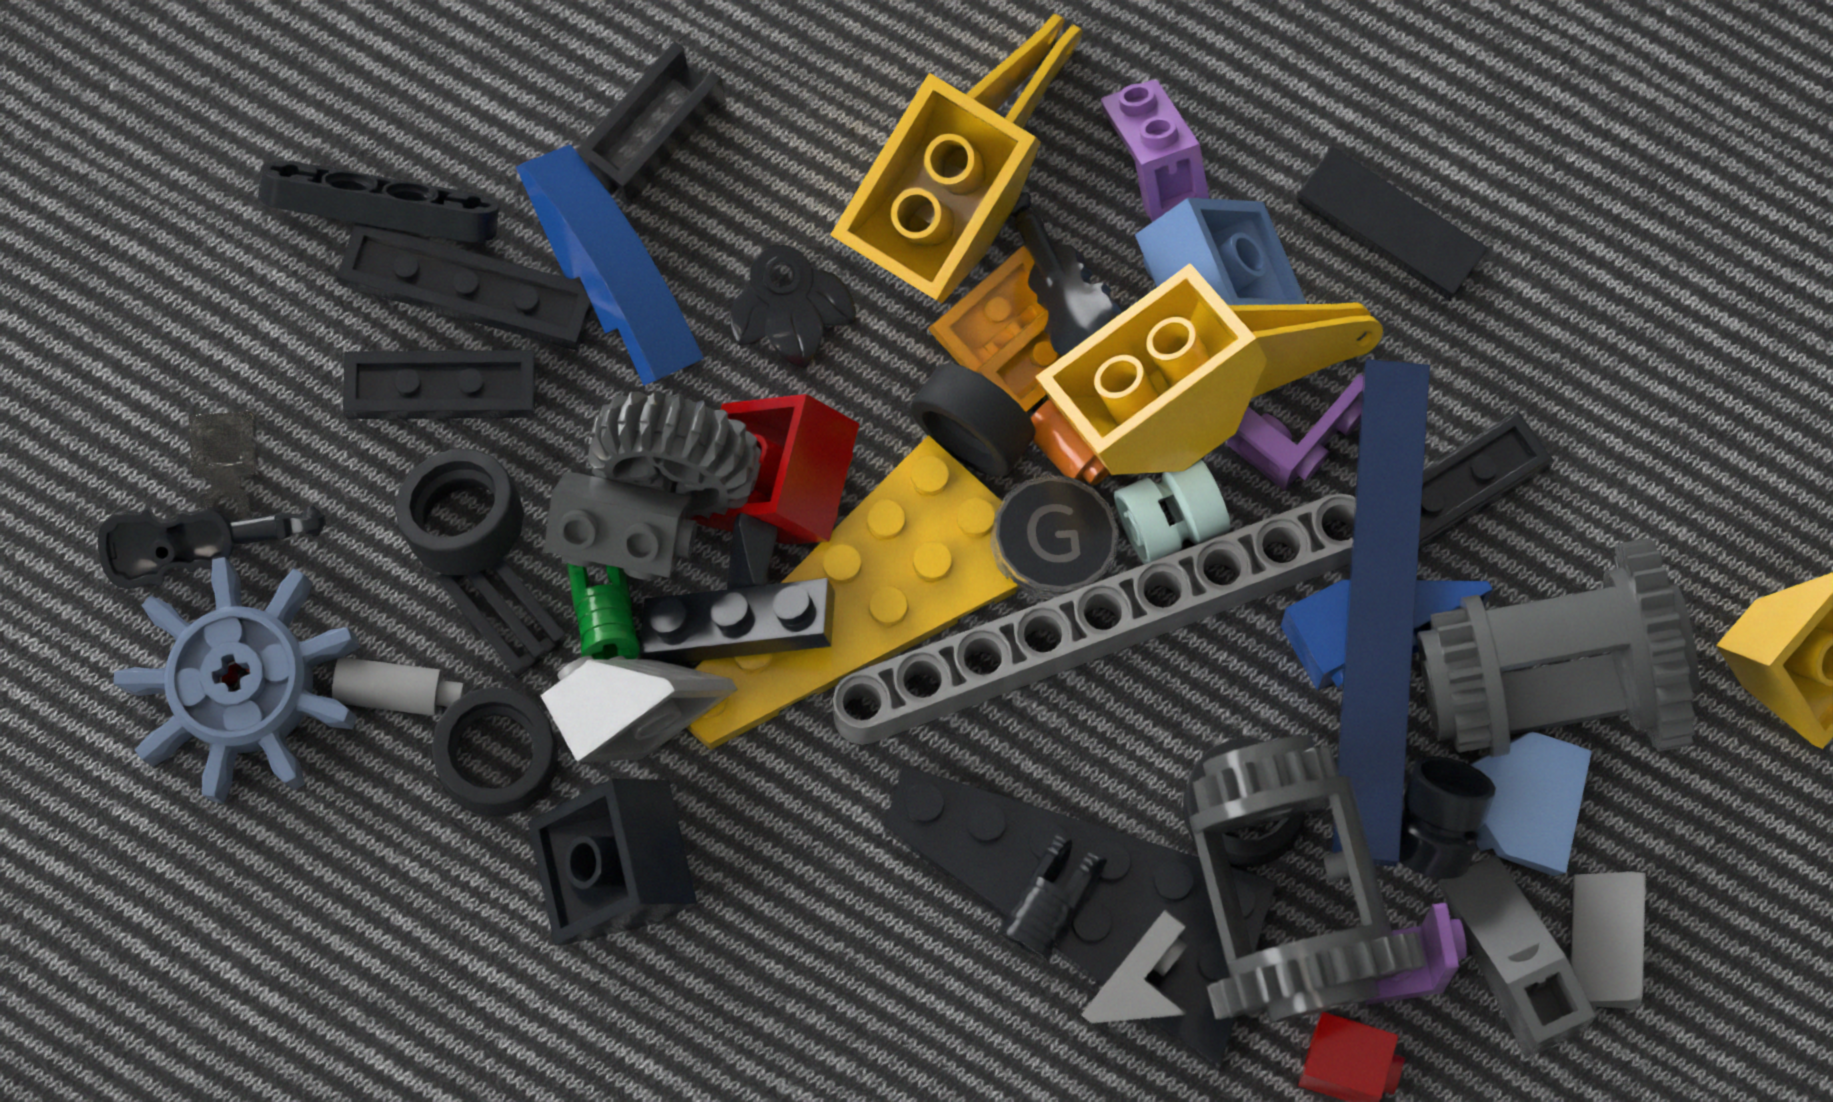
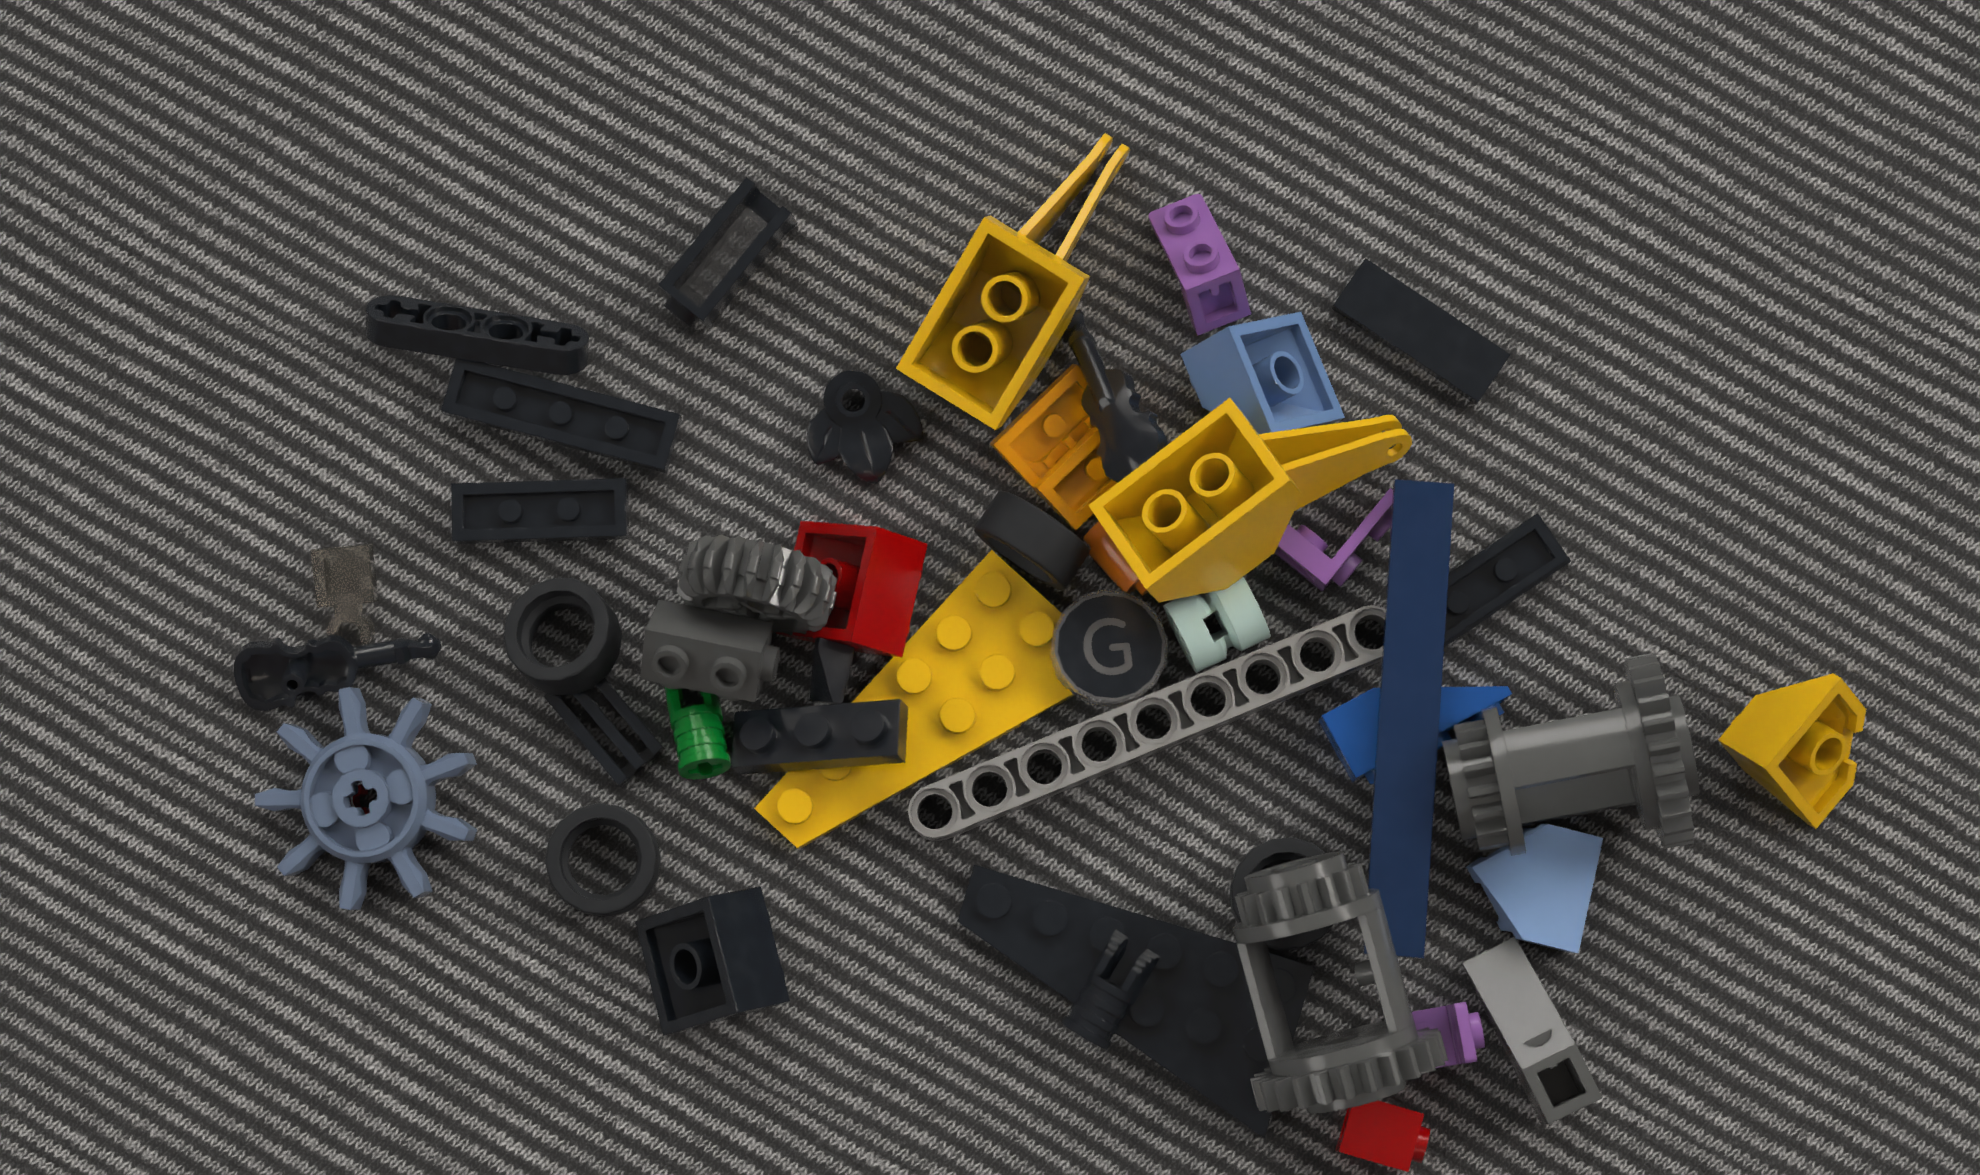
camera: 10 degrees right, 10 degrees up
(393, 686) = (509, 800): light grey cylinder -> none
(612, 262) = (694, 392): blue slope -> none
(628, 706) = (721, 820): slope -> none
(1128, 992) = (1181, 1077): light grey slope -> none
(1441, 816) = (1465, 909): black wheel -> none
(1609, 937) = (1616, 1013): light grey slope -> none

